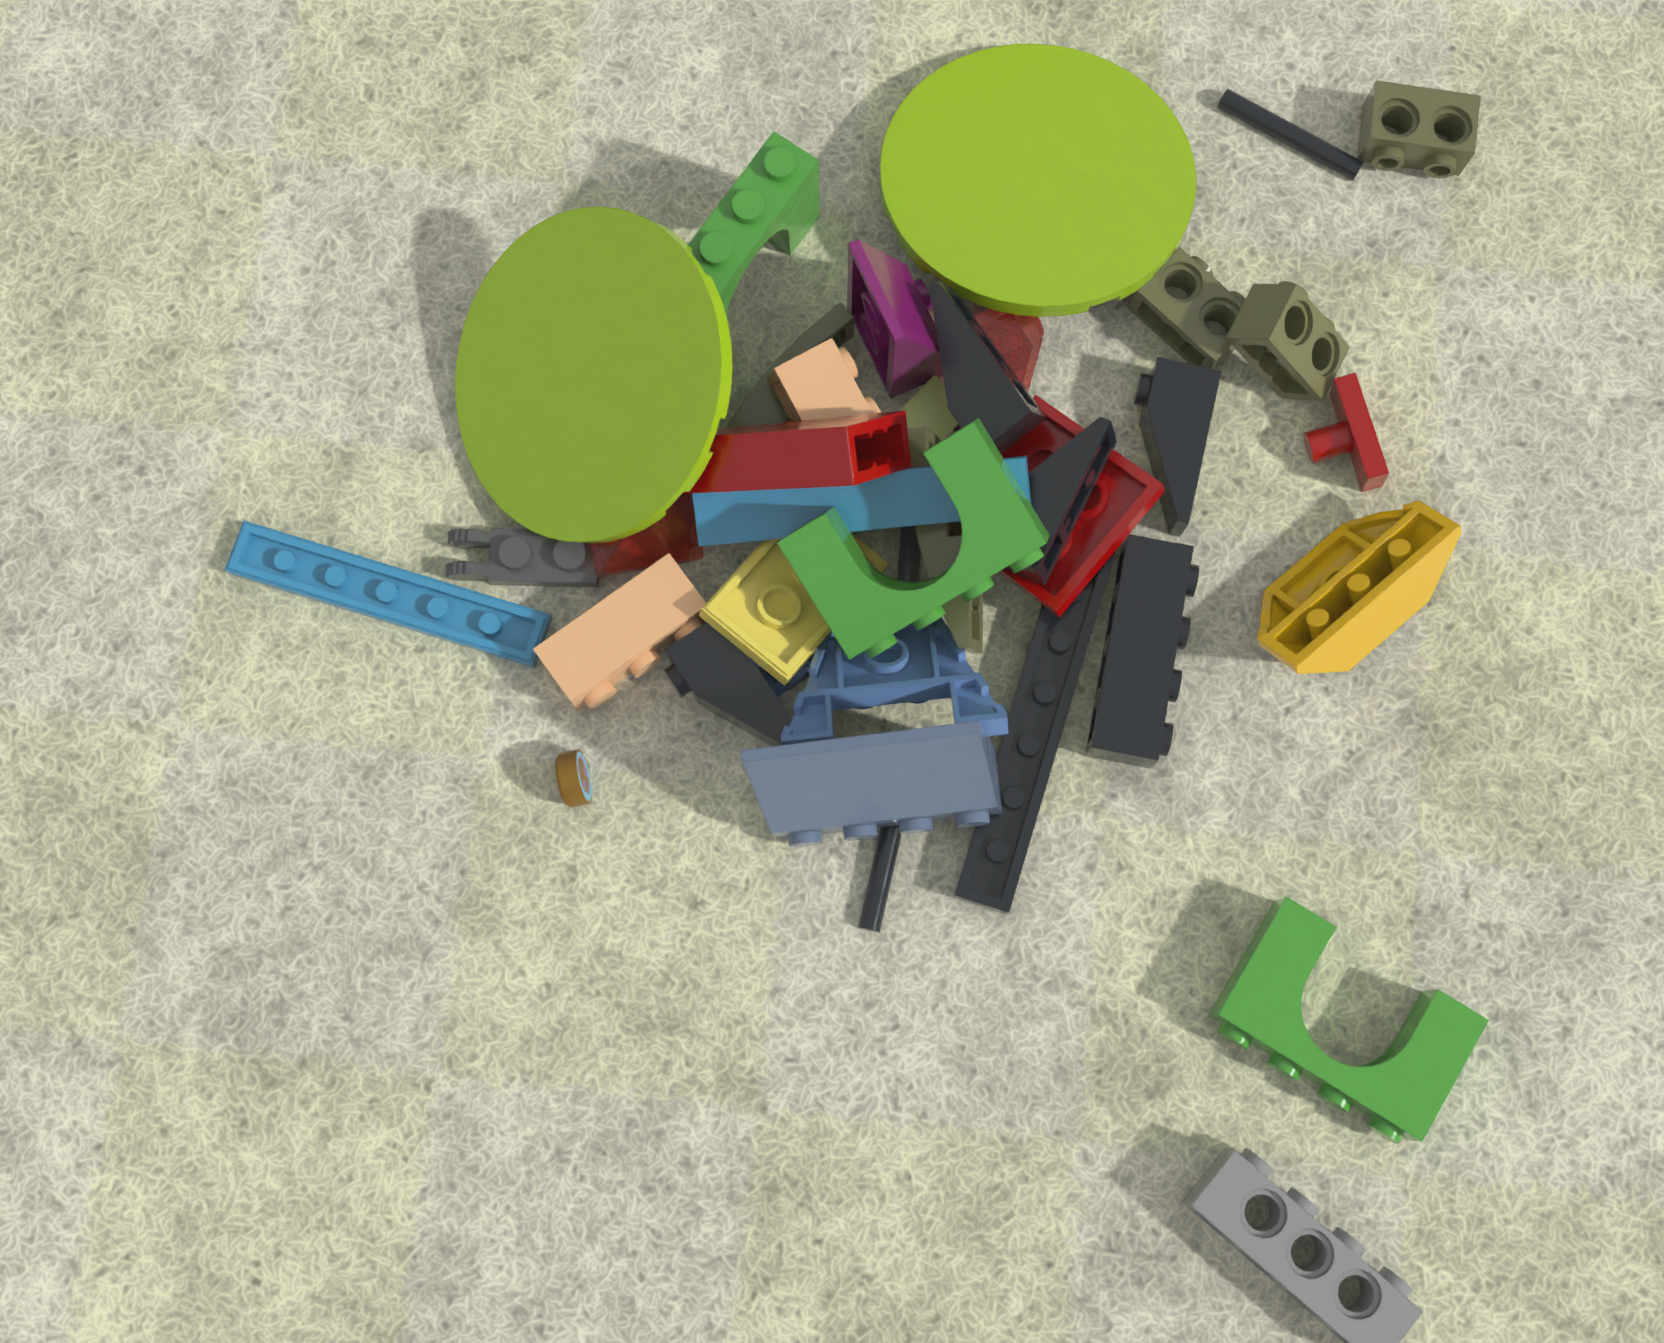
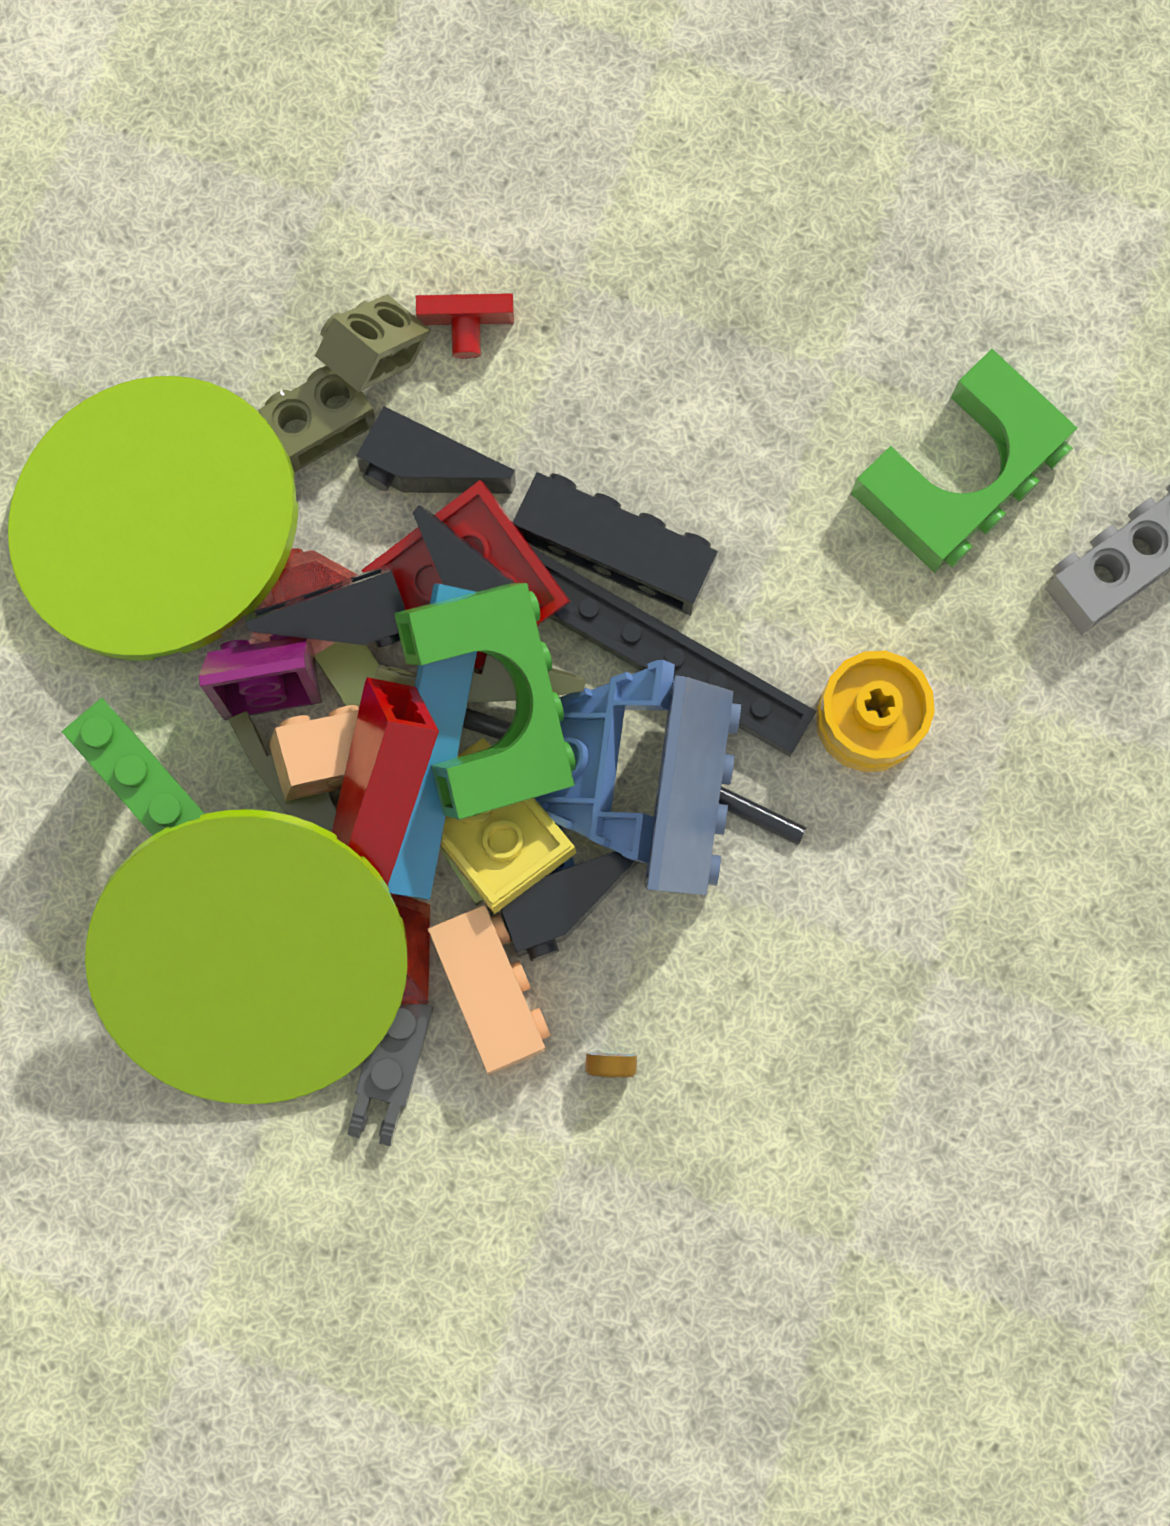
camera: 80 degrees left, 0 degrees up
(388, 593) = (390, 1207): dark azure tile -> none
(1056, 966) = (894, 690): none -> yellow wheel
(1290, 134) = (168, 290): black bar -> none
(1356, 588) = (603, 351): yellow wedge -> none
(1417, 117) = (187, 179): olive brick -> none

